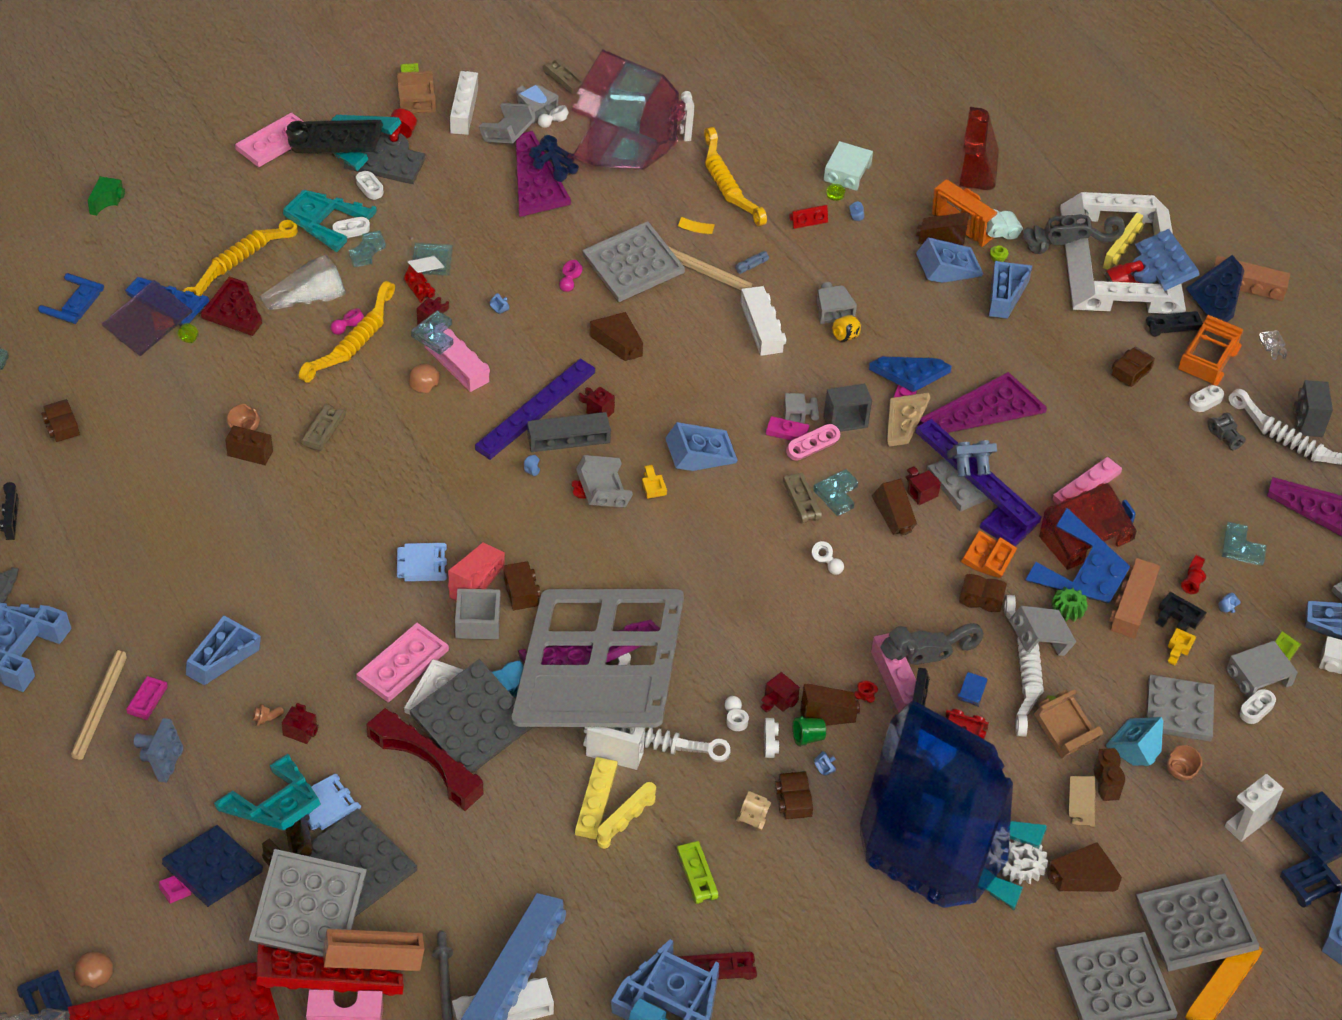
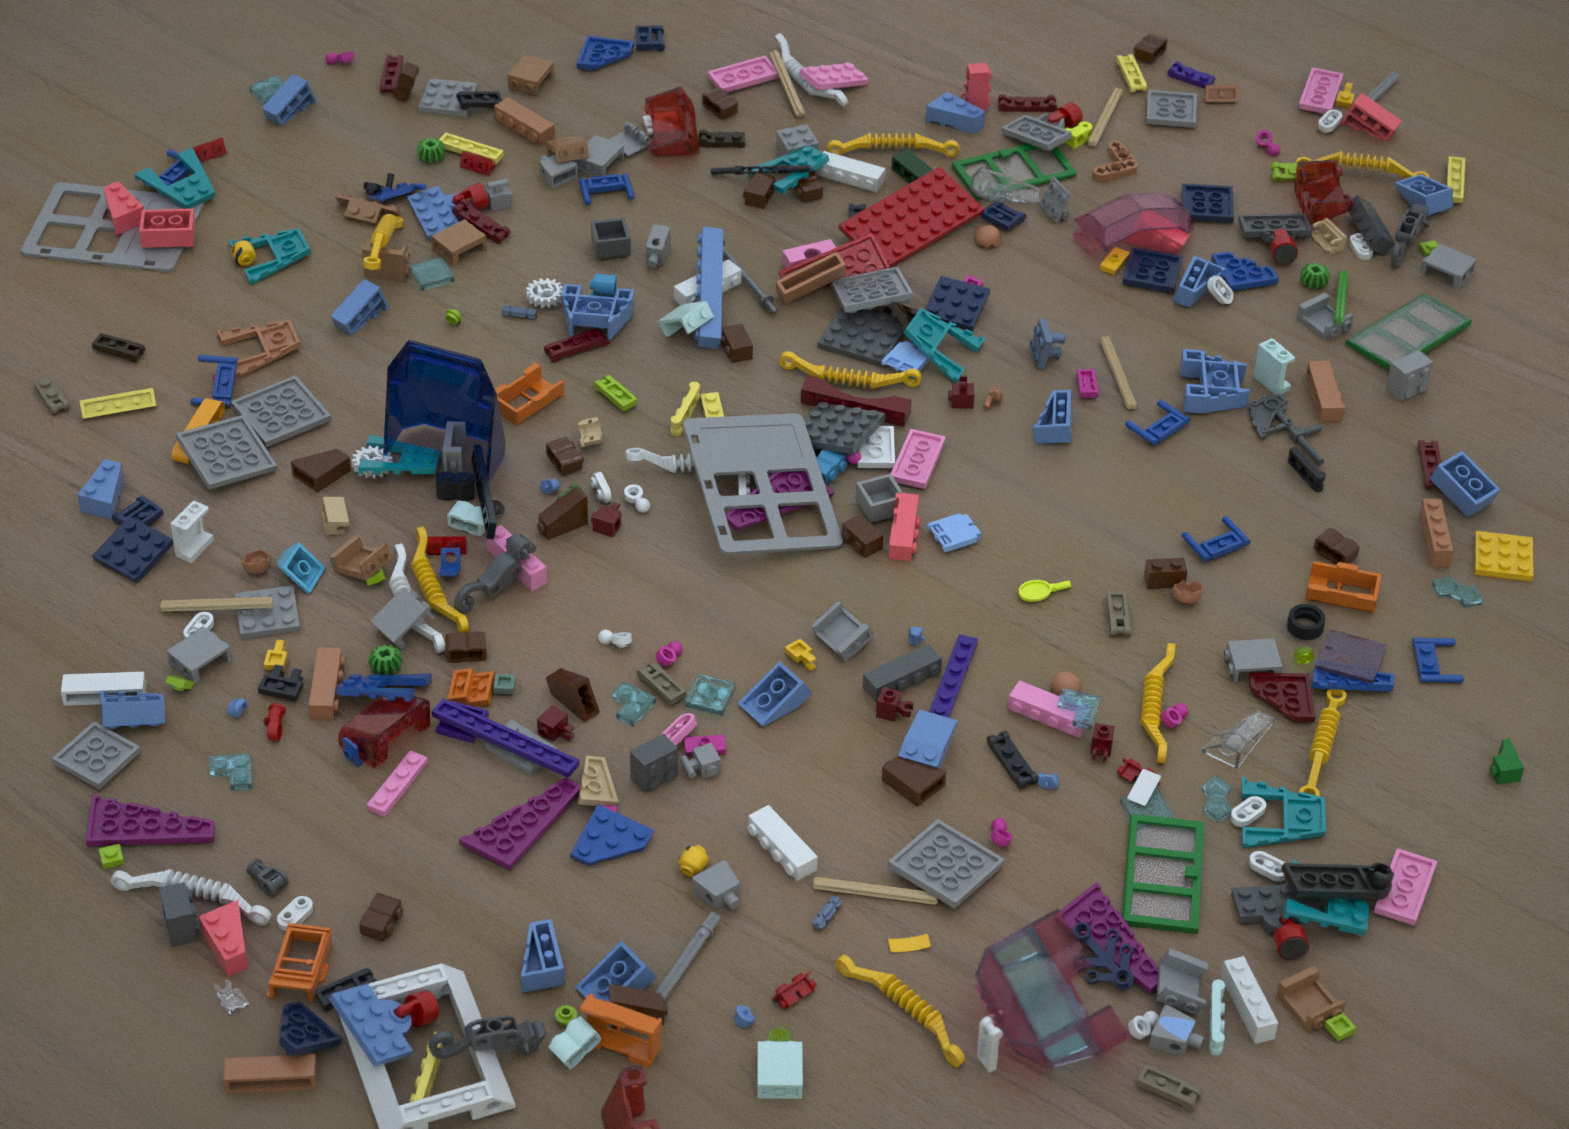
camera: 160 degrees right, 5 degrees down
(86, 357) = (1343, 574): none -> orange piece
(110, 612) = (1162, 428): none -> blue plate
(157, 372) = (1302, 631): none -> black tyre
(167, 462) = (1221, 544): none -> blue plate
(239, 338) = (1252, 656): none -> light grey panel
(379, 475) = (1039, 590): none -> neon yellow piece
(410, 795) = (875, 380): none -> yellow piece
(456, 208) = (1163, 874): none -> door
(492, 107) = (1216, 1025): none -> light aqua plate
(515, 893) = (737, 343): none -> reddish brown brick
(518, 331) = (1012, 760): none -> black plate
(567, 933) = (687, 316): none -> light aqua panel
(590, 351) = (928, 739): none -> medium blue slope
(761, 471) = (710, 694): none -> clear light blue plate
(785, 521) = (667, 654): none -> dark pink plate
(797, 880) = (531, 380): none -> orange piece
(860, 277) = (704, 931): none -> light grey axle
(866, 686) = (541, 545): red plate -> none
(956, 543) = (504, 684): none -> sand green plate
(979, 450) = (514, 726): sand blue plate -> none
(1000, 677) = (430, 585): none -> yellow piece
(1109, 774) = (317, 536): reddish brown brick -> none
(1236, 720) = (217, 604): none -> tan axle
(1272, 387) = (225, 937): none -> coral wedge

